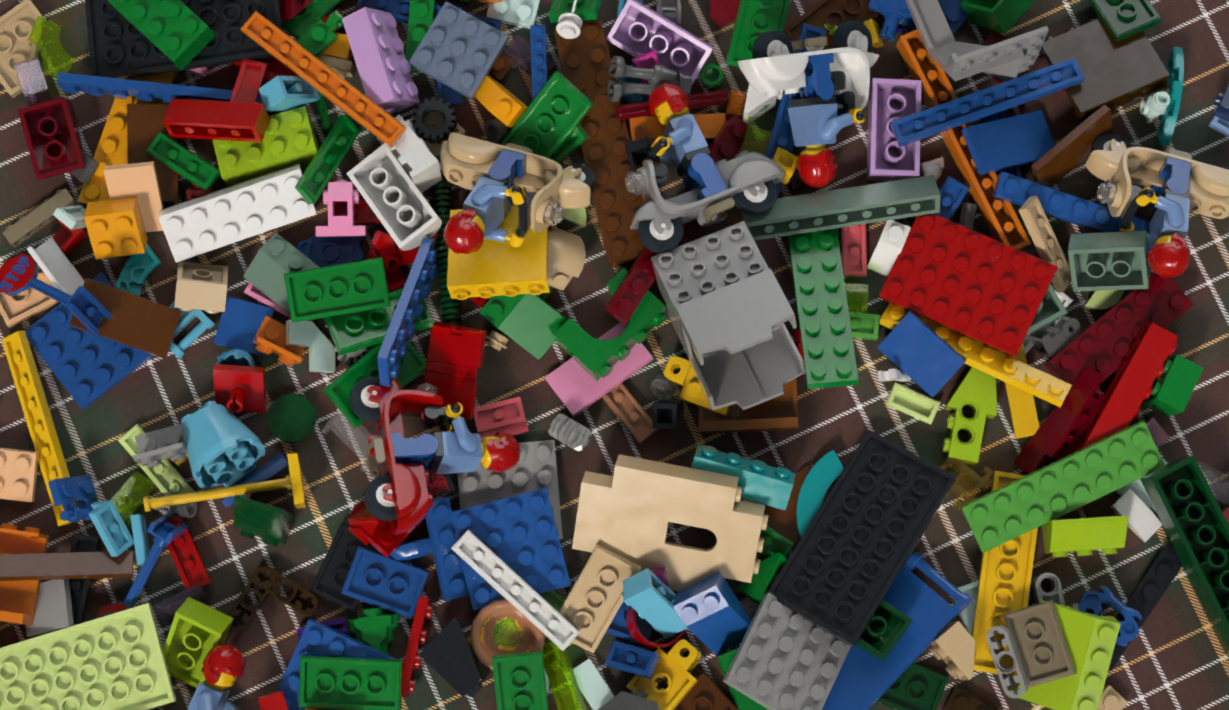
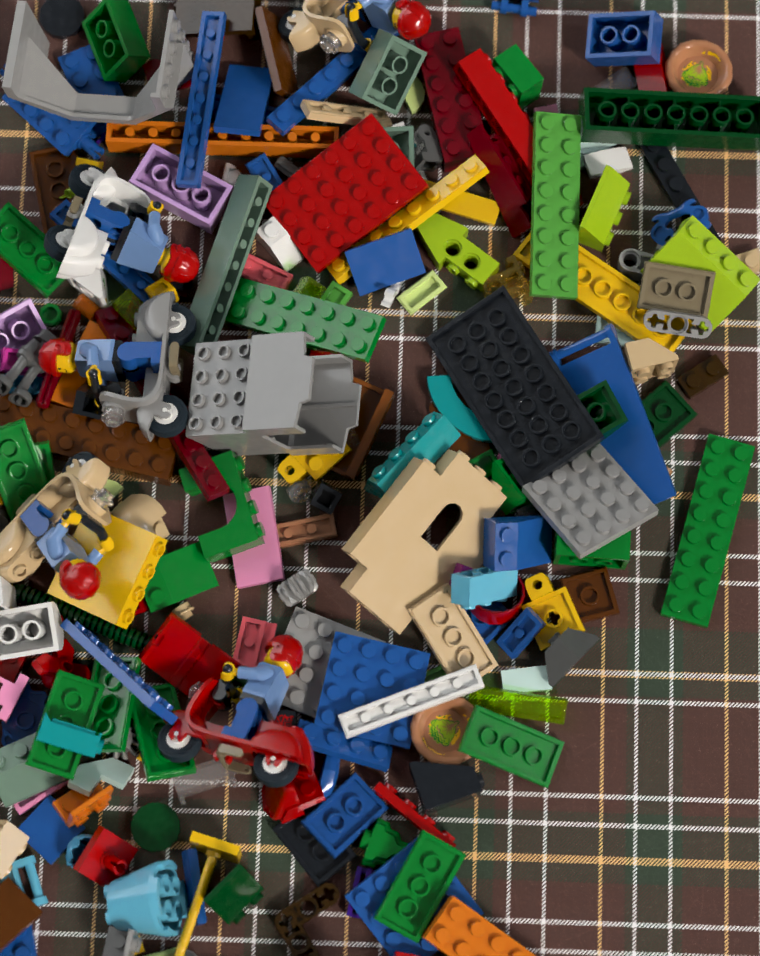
camera: 60 degrees left, 5 degrees down
(325, 300) = (69, 737): none -> teal window

